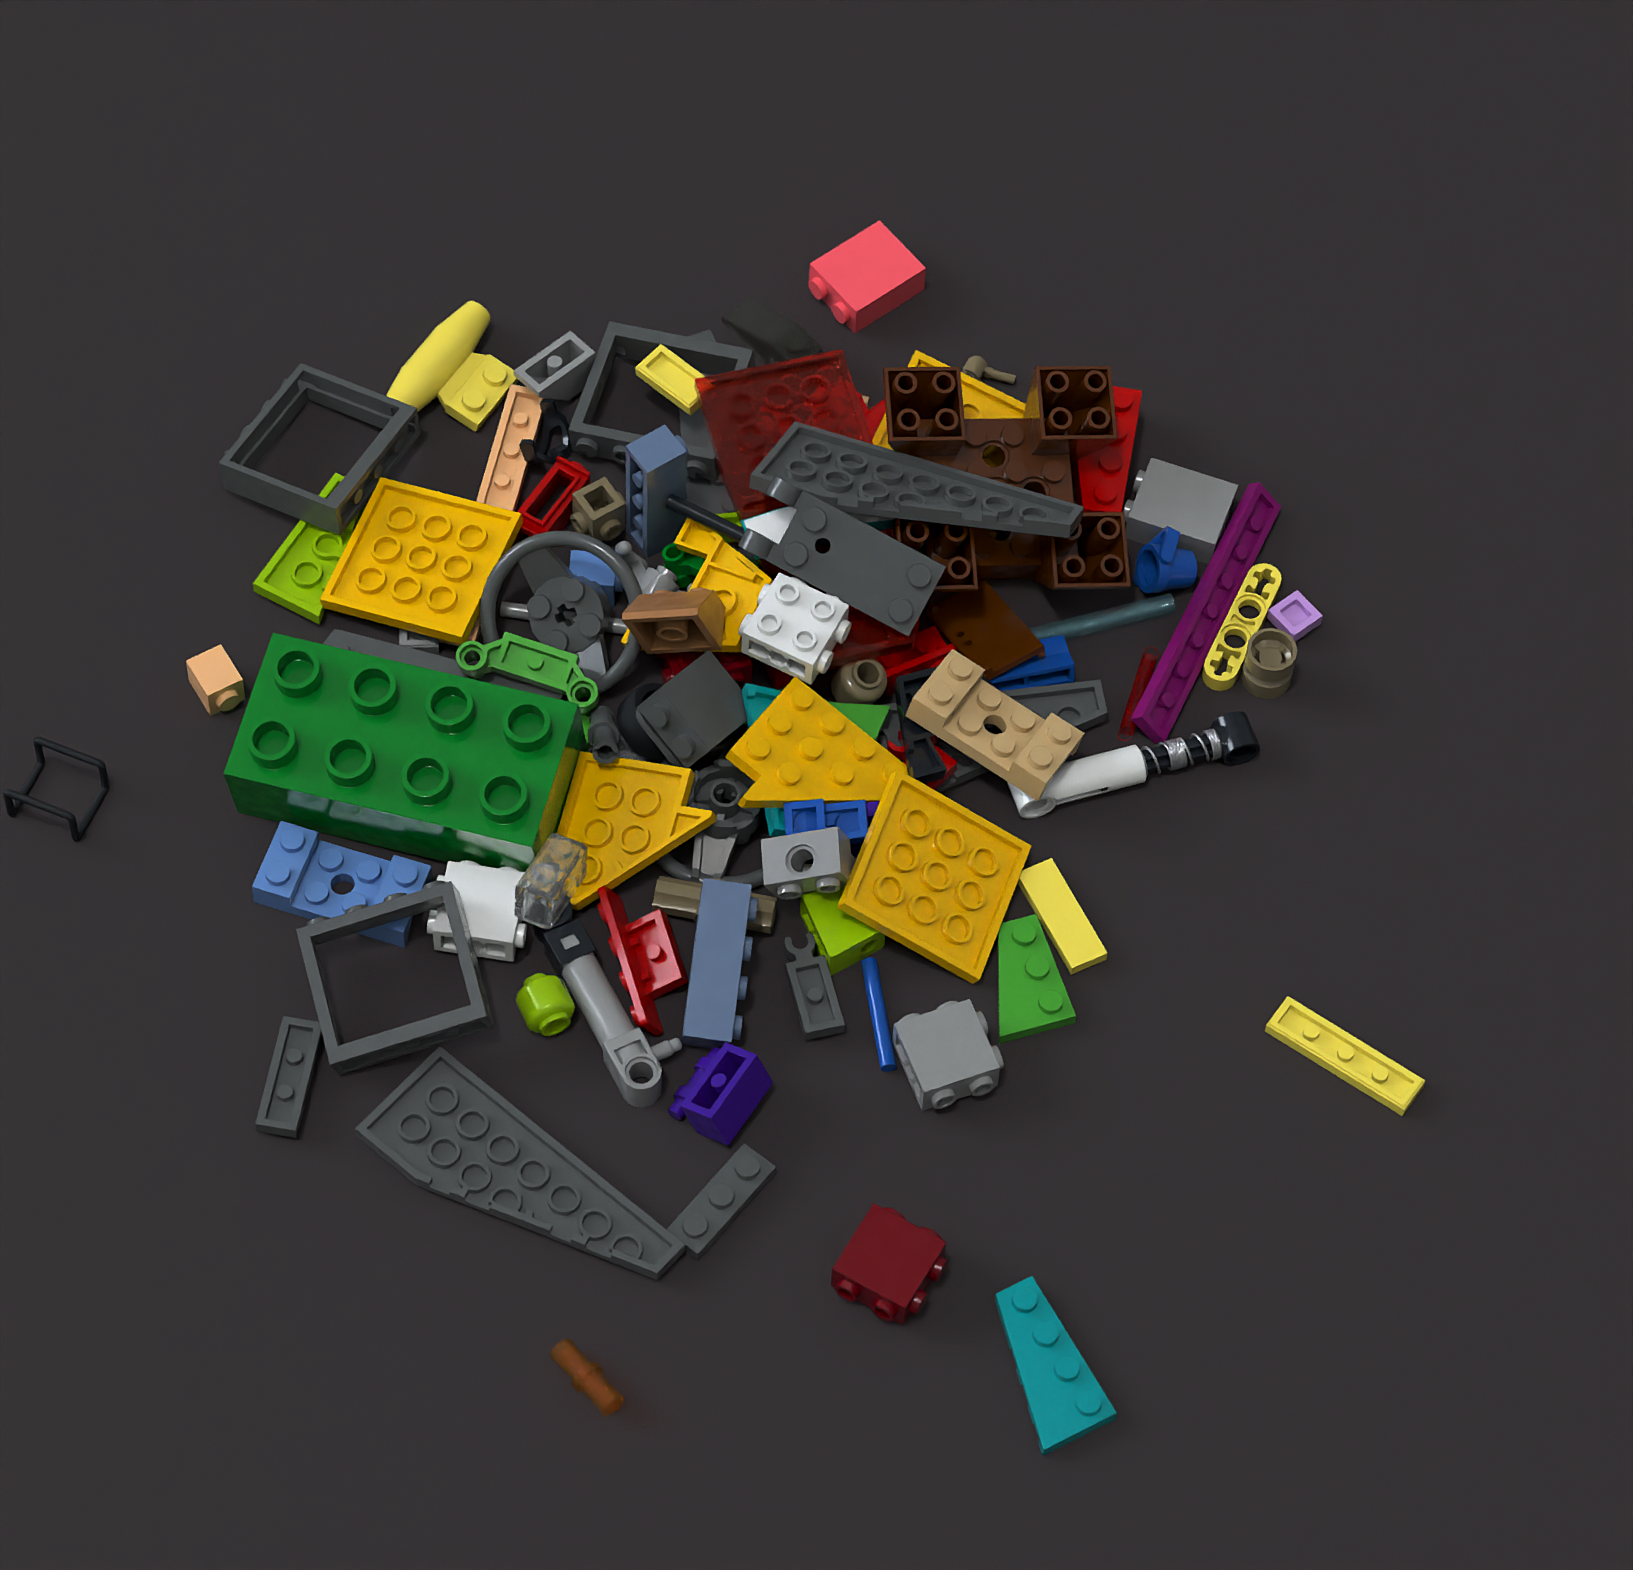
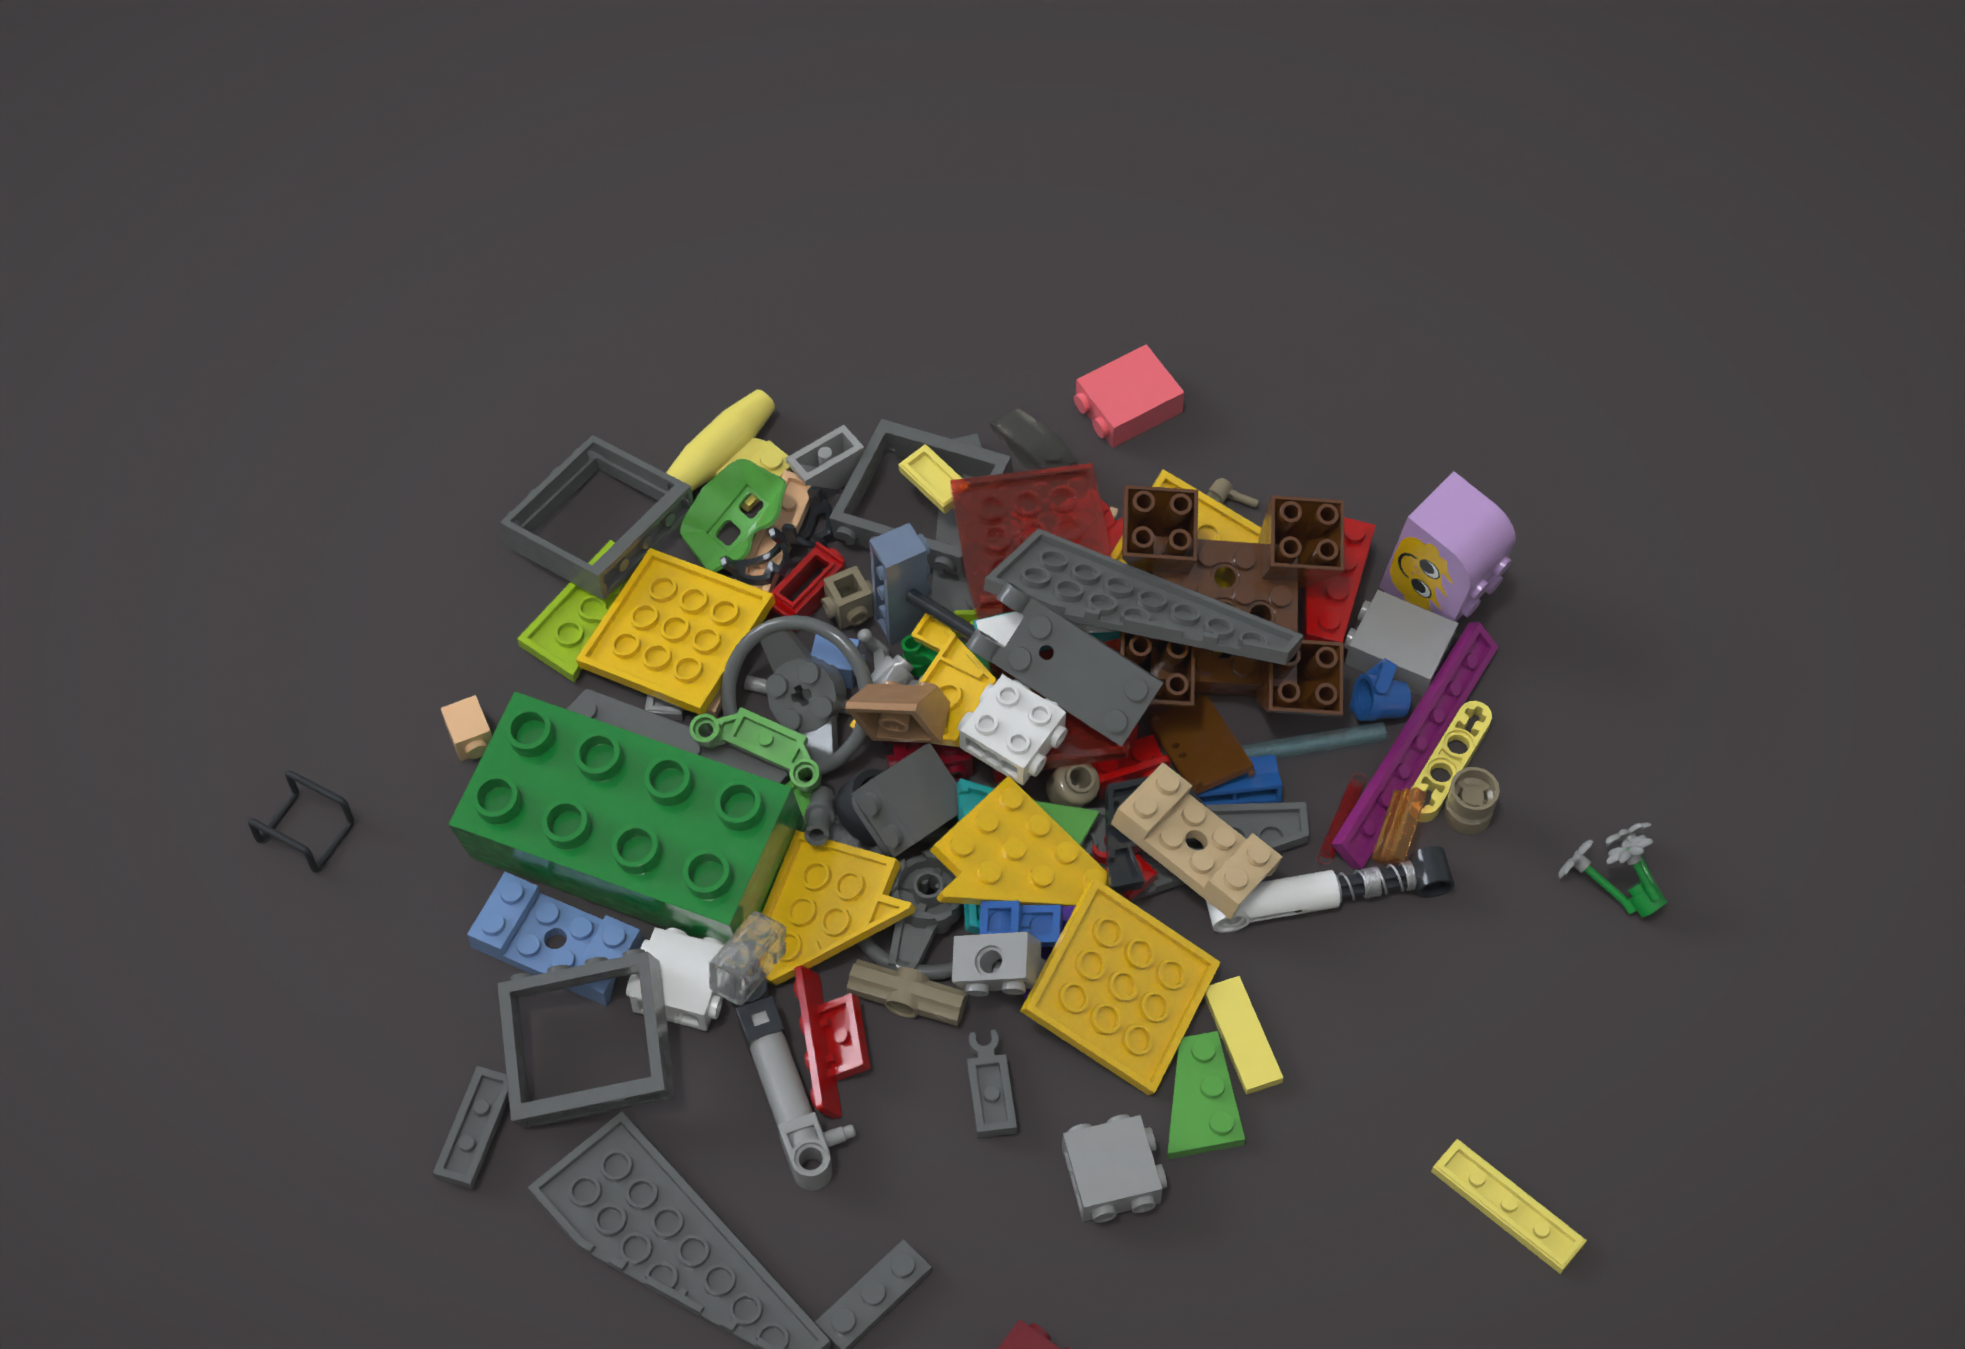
camera: 10 degrees right, 0 degrees up
(449, 423) = (722, 502): none -> bright green piece
(478, 489) = (738, 567): none -> black helmet
(545, 1004) = (729, 1078): lime head -> none
(717, 963) = (898, 1056): sand blue brick -> none
(722, 1092) = (887, 1186): dark purple brick -> none
(836, 933) = (1020, 1036): lime torso -> none
(878, 1014) = (1052, 1118): blue bar -> none
(1198, 694) = (1399, 826): none -> clear orange tile
(1224, 410) = (1450, 551): none -> lavender brick
(1295, 615) = (1501, 755): lavender plate -> none
(1453, 742) = (1645, 895): none -> plant

